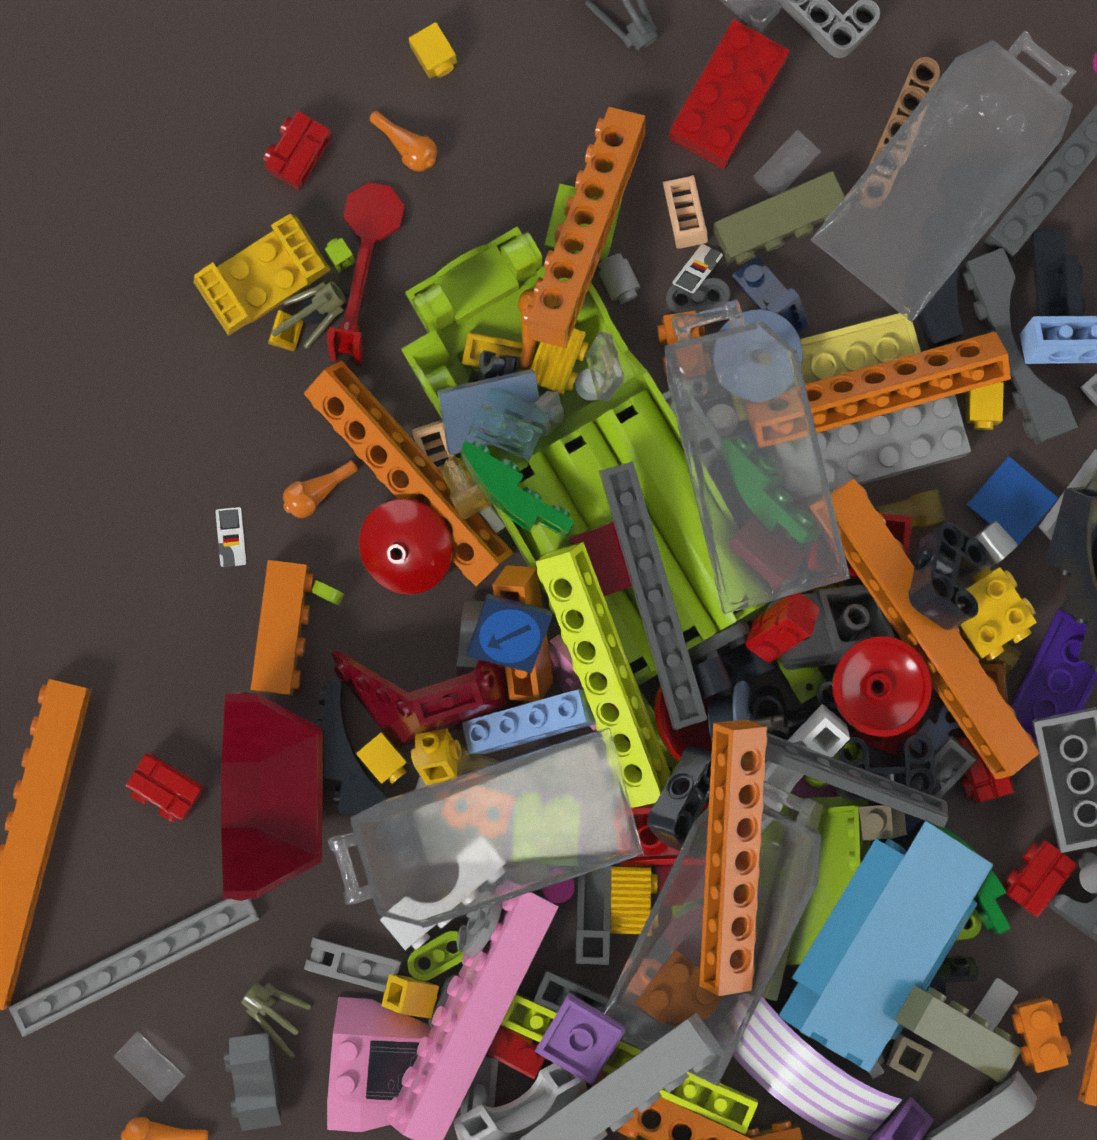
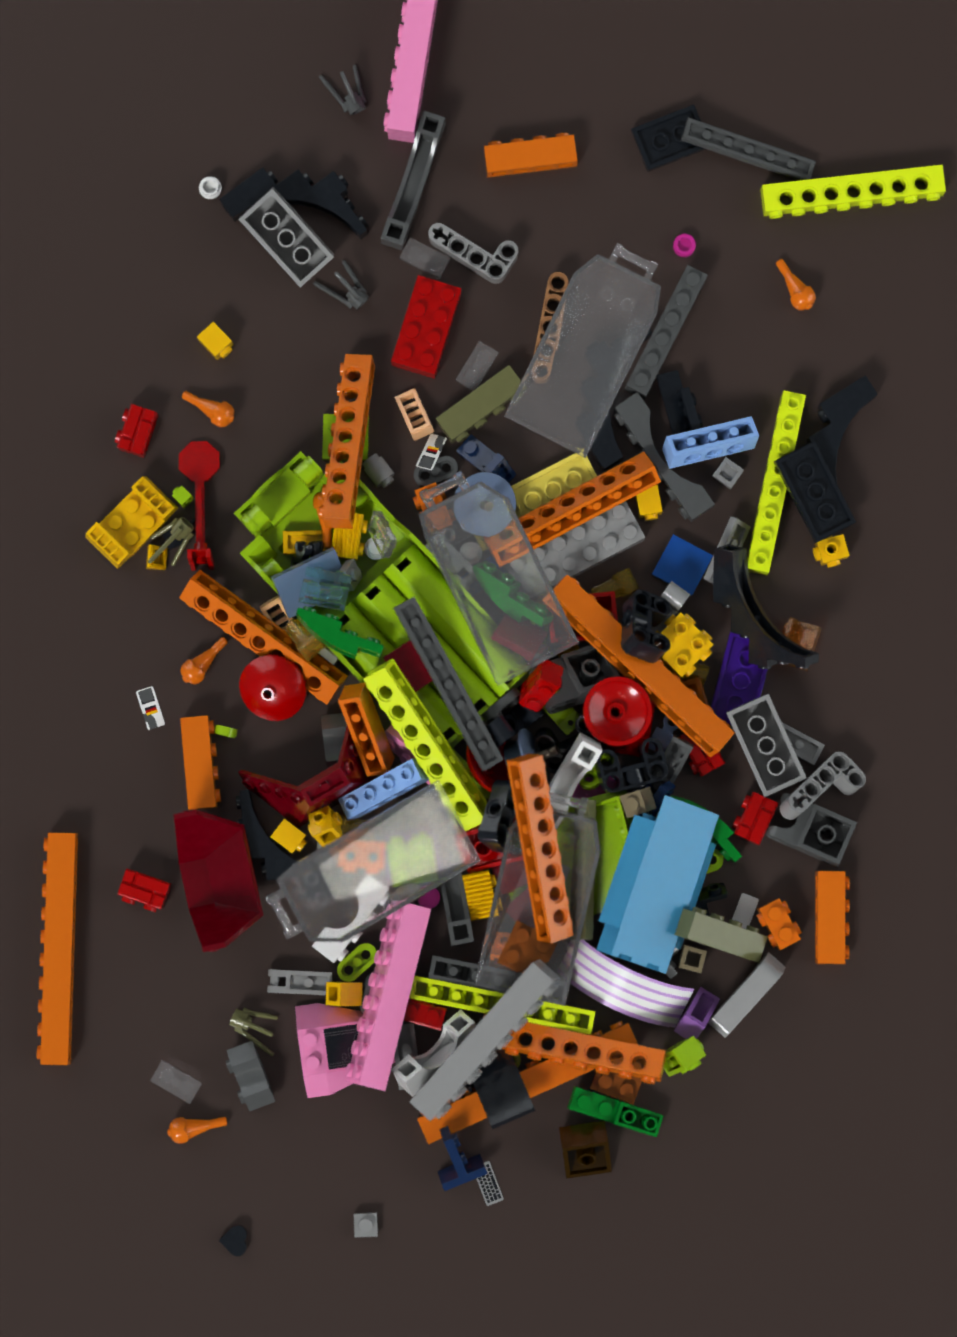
camera: 15 degrees left, 0 degrees up
(132, 964) = (149, 1014): light grey tile -> none
(479, 929) = (380, 936): light grey tile -> none
(509, 633) = (356, 731): tile -> none
(580, 1039) = (465, 995): medium lavender tile -> none
(856, 780) = (612, 778): dark grey tile -> none

